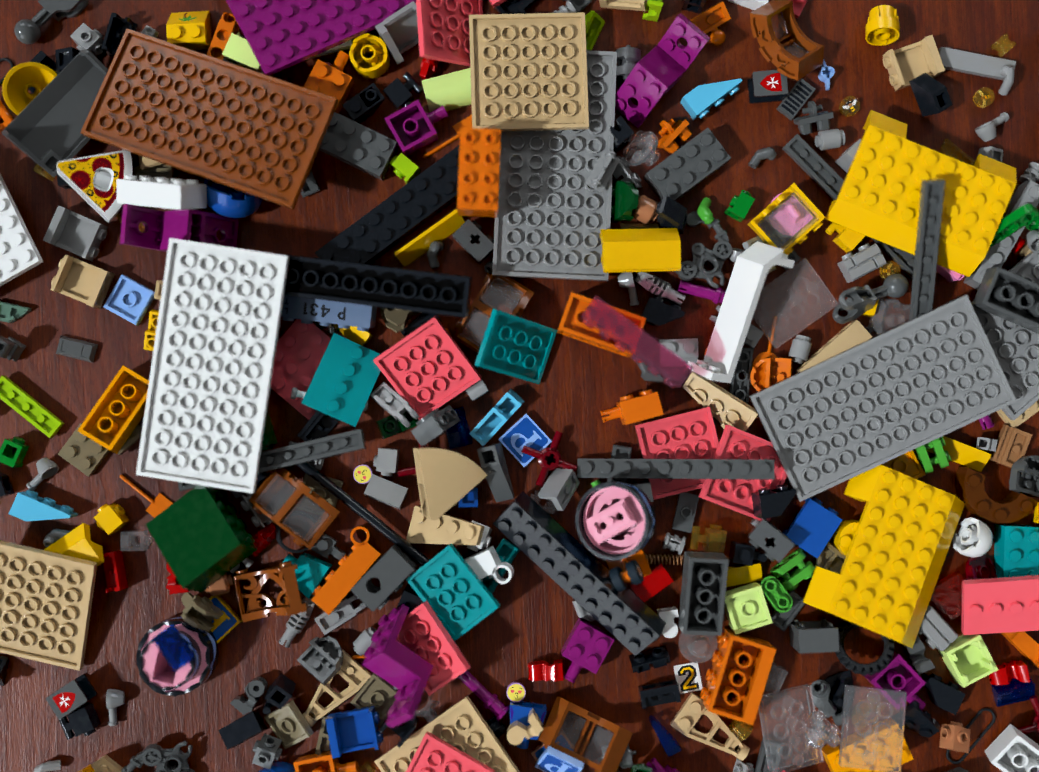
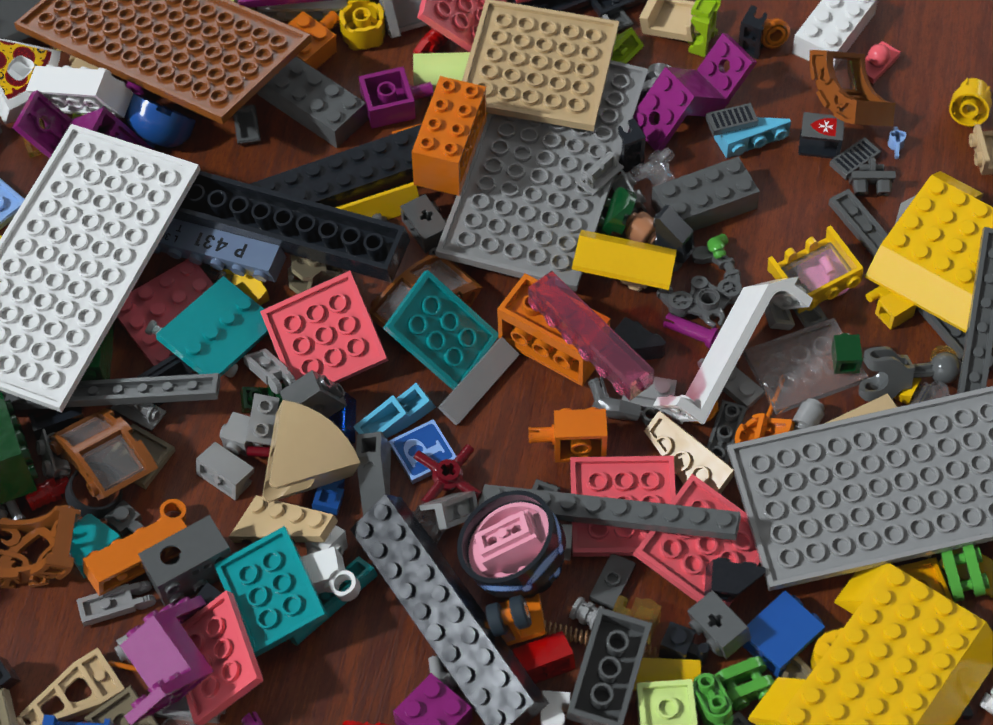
camera: 15 degrees right, 30 degrees down
(297, 623) = (54, 599): light grey hinge -> none
(322, 658) = (69, 649): dark grey slope -> none
(362, 473) = (200, 443): light yellow tile -> none
(364, 104) = (341, 64): black slope -> none
(364, 513) = (181, 475): black piece -> none
(400, 94) = (383, 60): black brick -> none
(402, 449) = (262, 419): none -> light grey hinge
(404, 168) = (365, 131): lime brick -> none
(477, 390) = (379, 379): light grey brick -> none
(551, 373) = (478, 381): none -> light grey tile
(626, 280) = (603, 300): light grey bar -> none
(659, 287) = (637, 311): light grey hinge -> none
(670, 132) = (694, 160): orange hips -> none
(696, 91) = (731, 119): none -> dark grey tile
(710, 20) = (768, 64): orange plate -> none
(740, 205) = (761, 249): green brick -> none
(765, 153) = (801, 204): dark grey arm -> none
(822, 292) = (846, 353): none -> dark green brick
(830, 139) = (887, 202): light grey brick -> none
(849, 106) = (918, 176): clear yellow tile -> none
(861, 263) = (908, 337): light grey brick -> none

